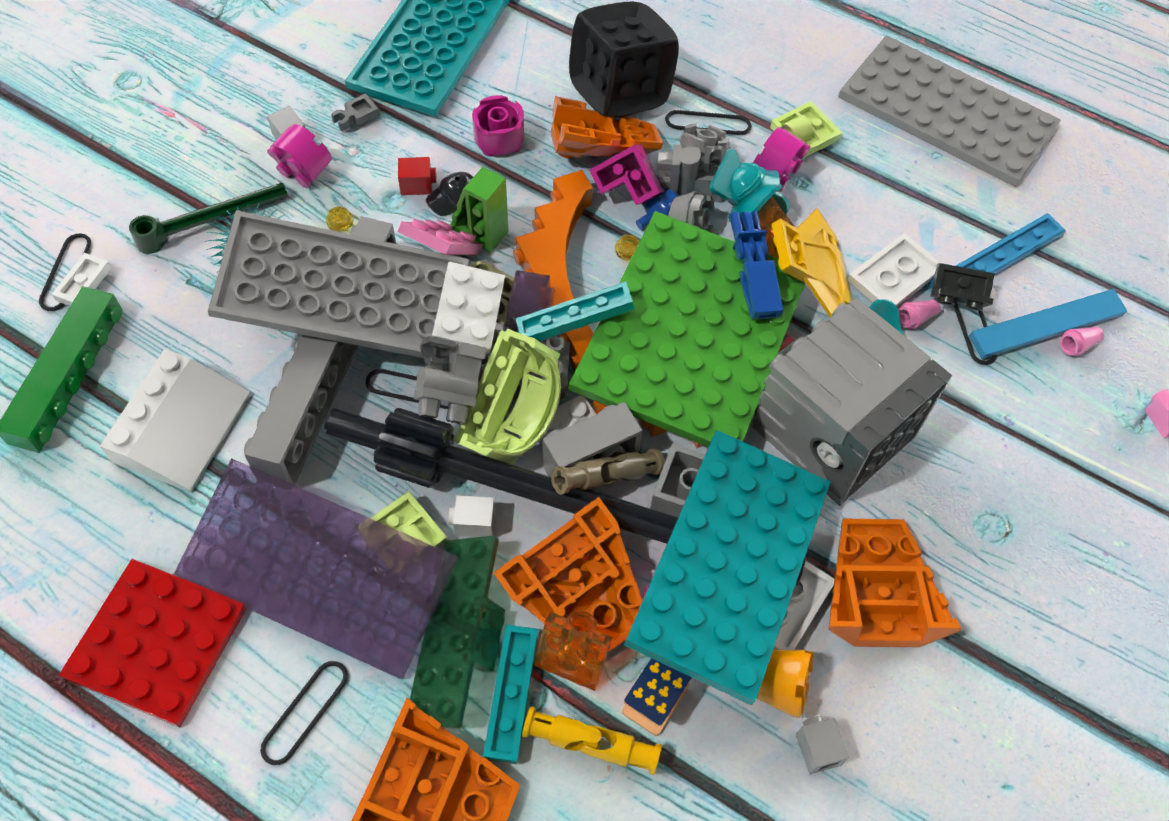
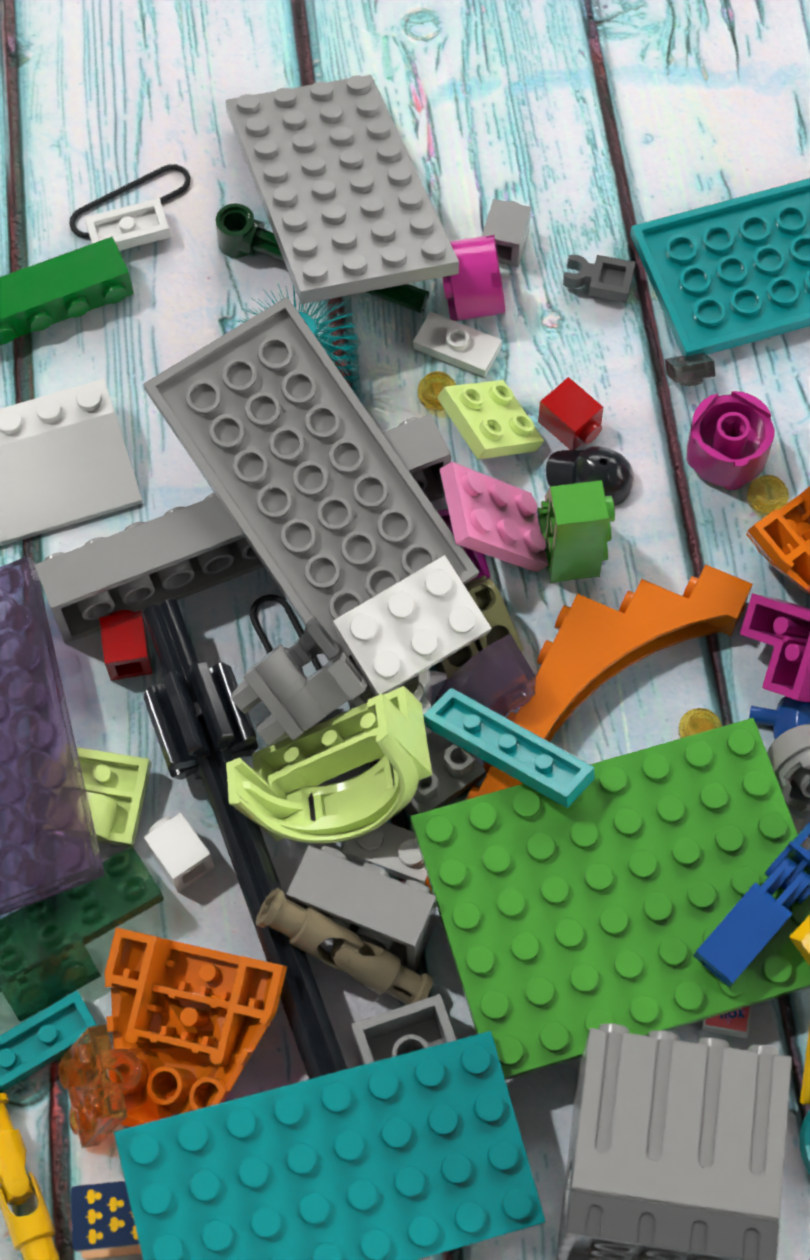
camera: 55 degrees right, 5 degrees up
(183, 167) = (340, 189): none -> light grey plate
(323, 194) = (457, 344): none -> white plate
(328, 457) = (125, 644): none -> red brick
(382, 206) = (490, 419): none -> yellowish green plate
(444, 115) = (690, 369): none -> clear smoke plate
(538, 137) = (767, 494): none -> clear yellow plate

